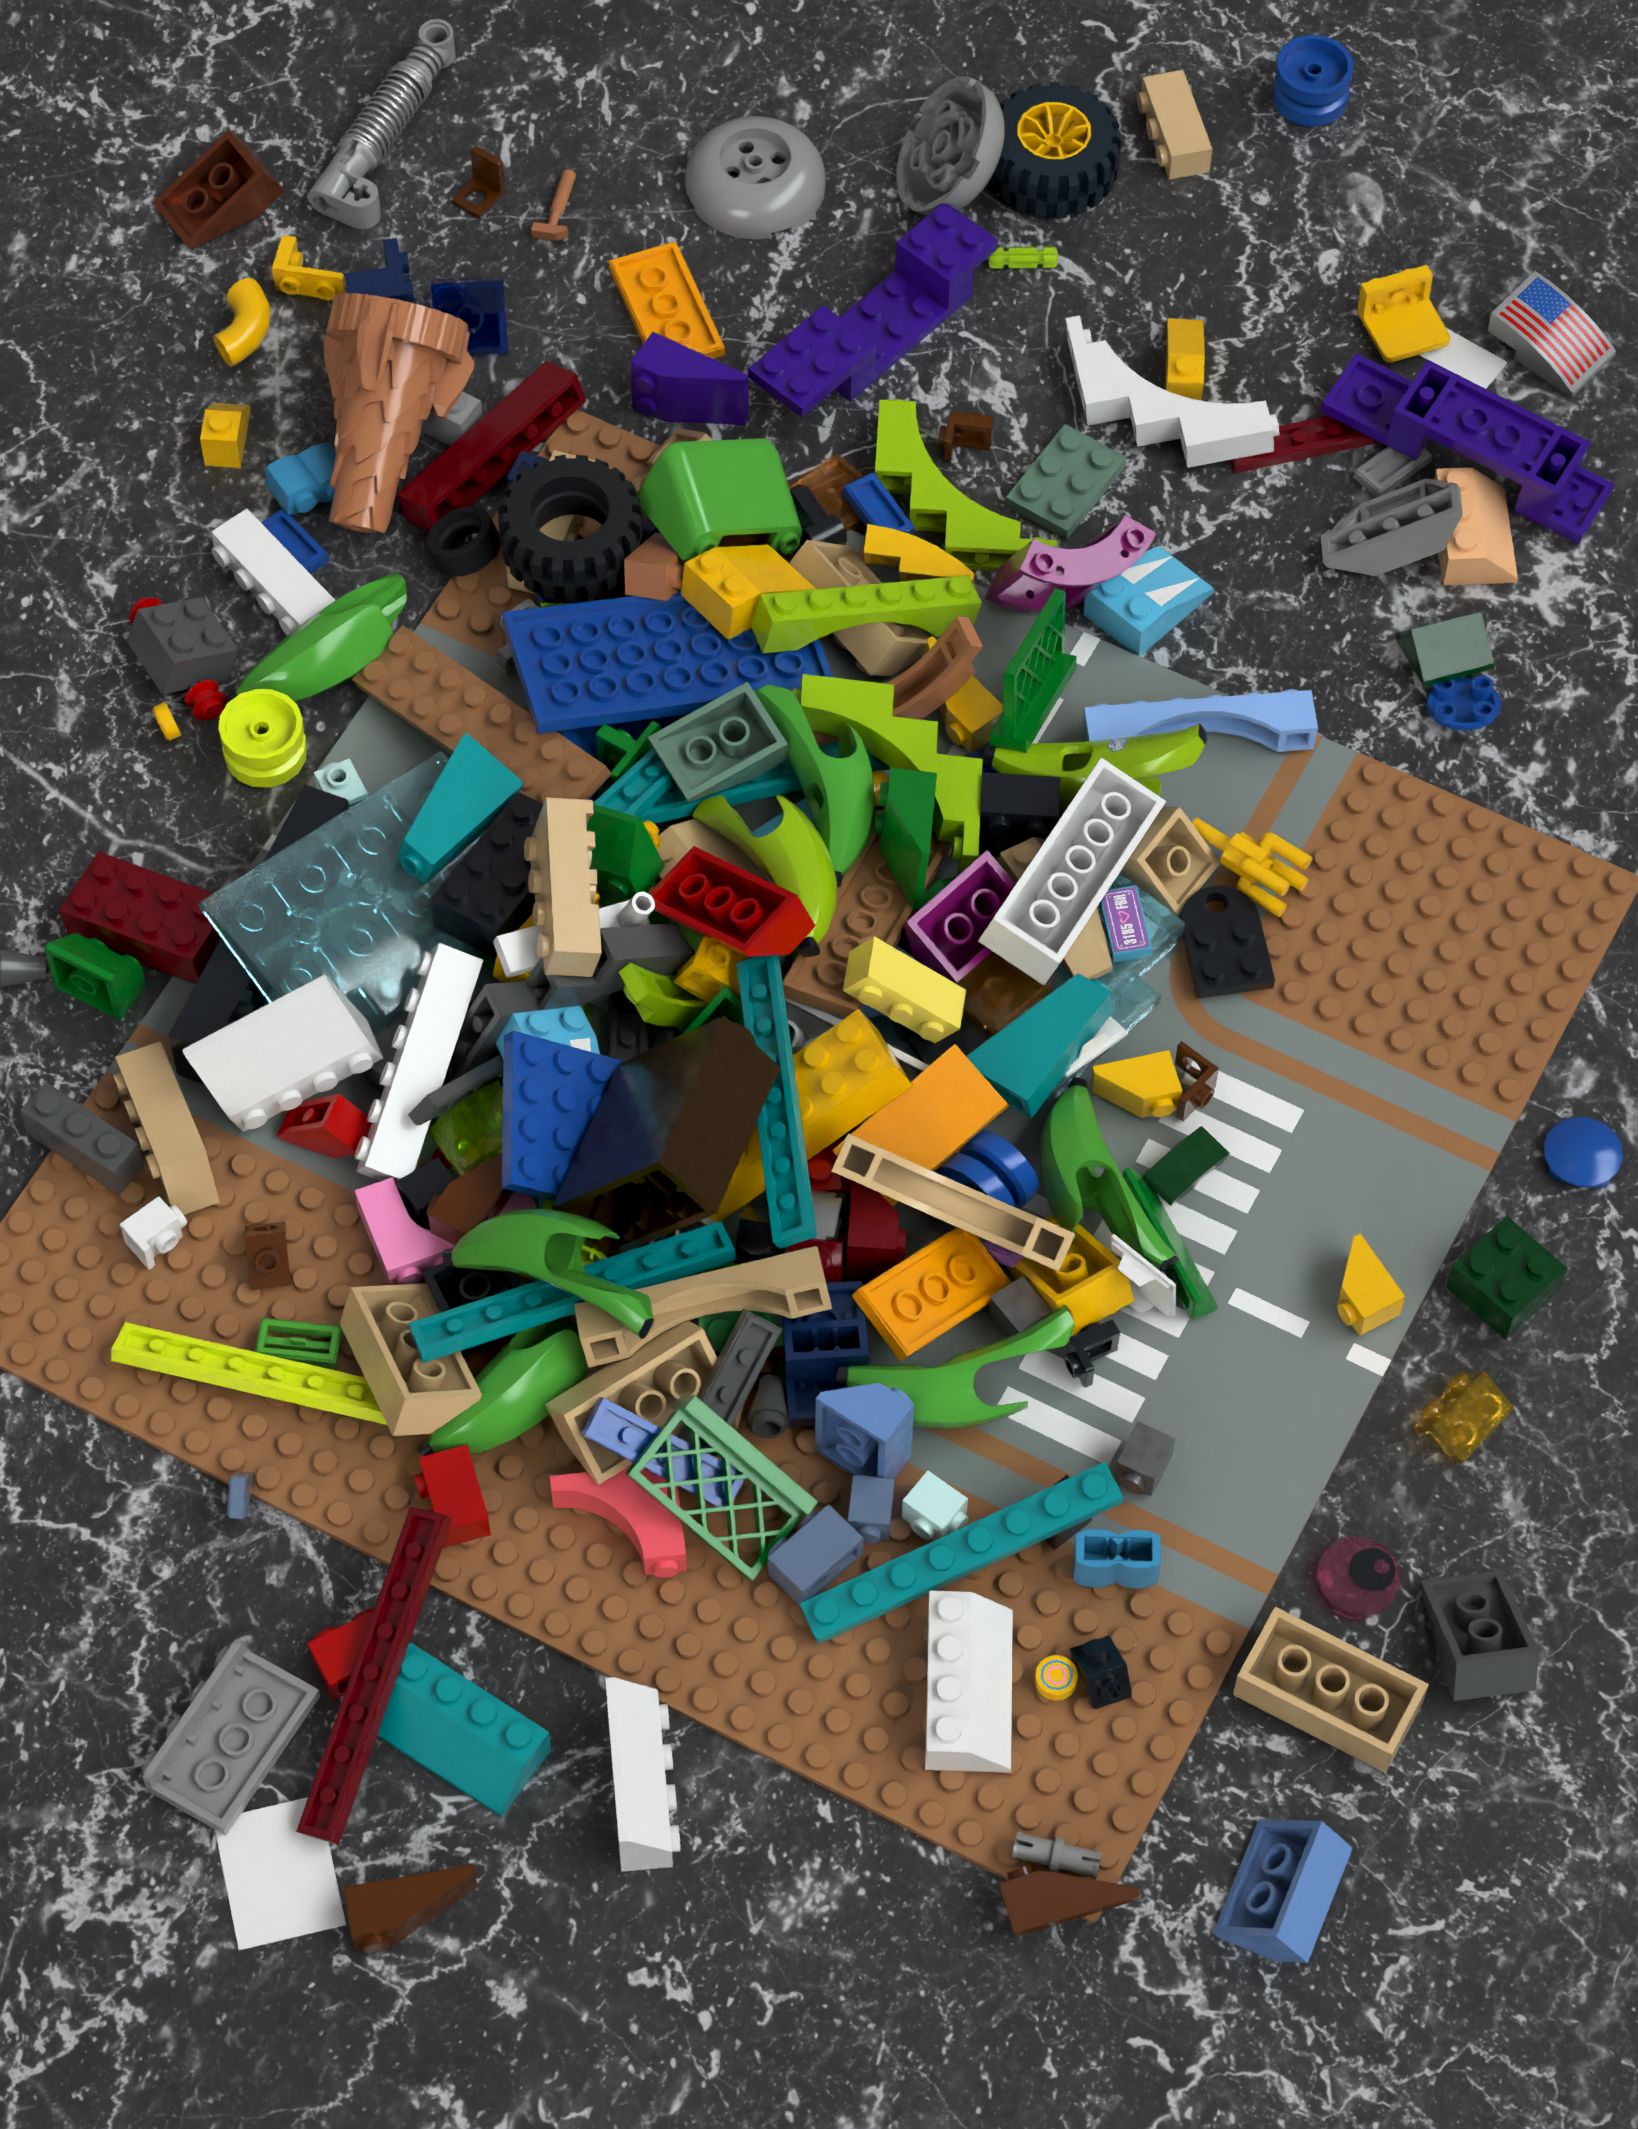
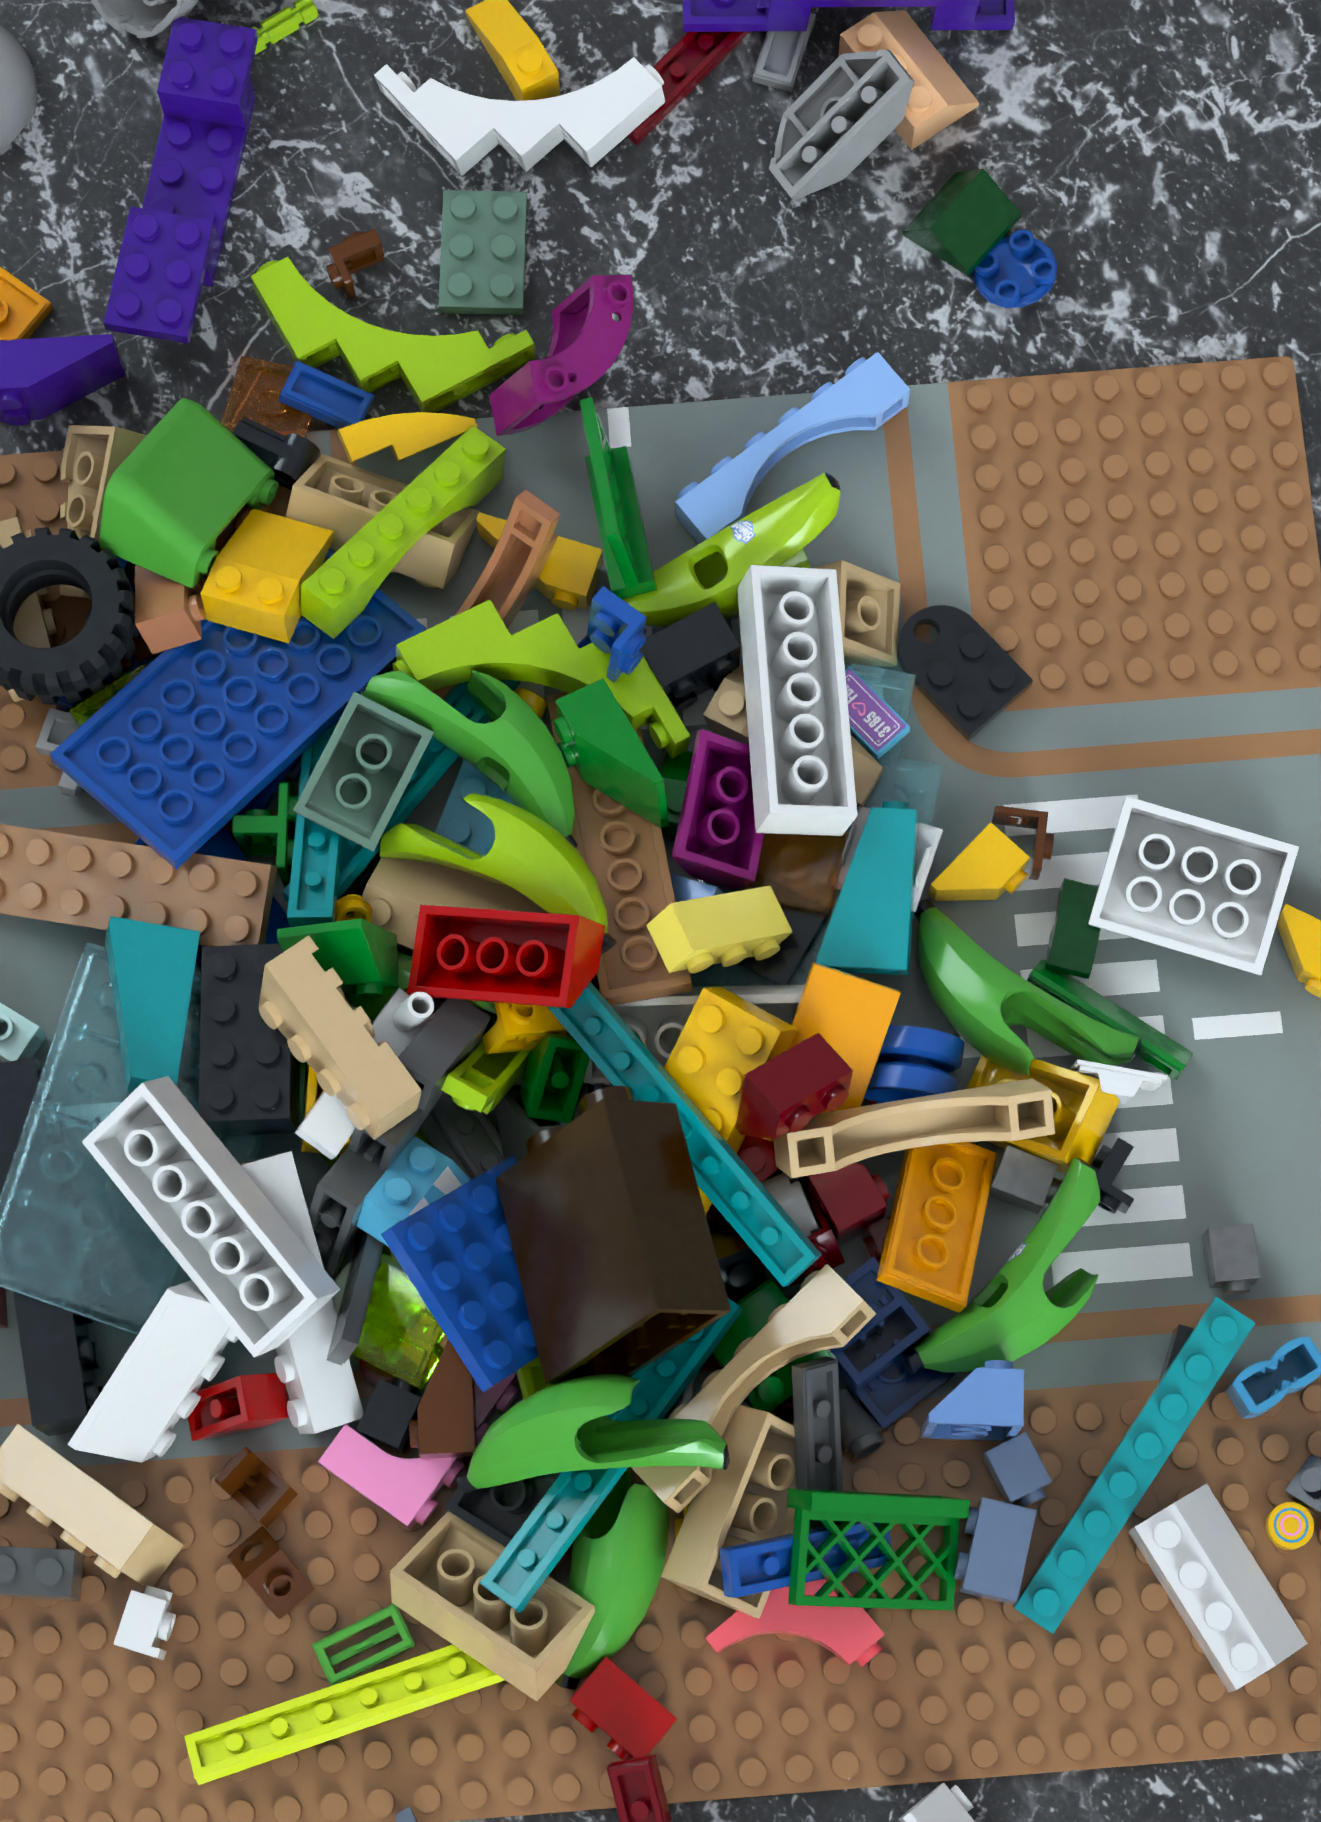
camera: 30 degrees left, 15 degrees up
(298, 1185) = (255, 1487): none -> reddish brown bracket
(392, 960) = (210, 1215): none -> white brick
(874, 1105) = (793, 1089): none -> dark red slope
(934, 1508) = (1076, 1432): light aqua brick -> none
(968, 748) = (616, 630): none -> blue bracket
(1146, 600) = (656, 341): medium azure slope -> none
(1257, 863) = (938, 568): yellow plant -> none
(1298, 1180) = (1193, 885): none -> white slope

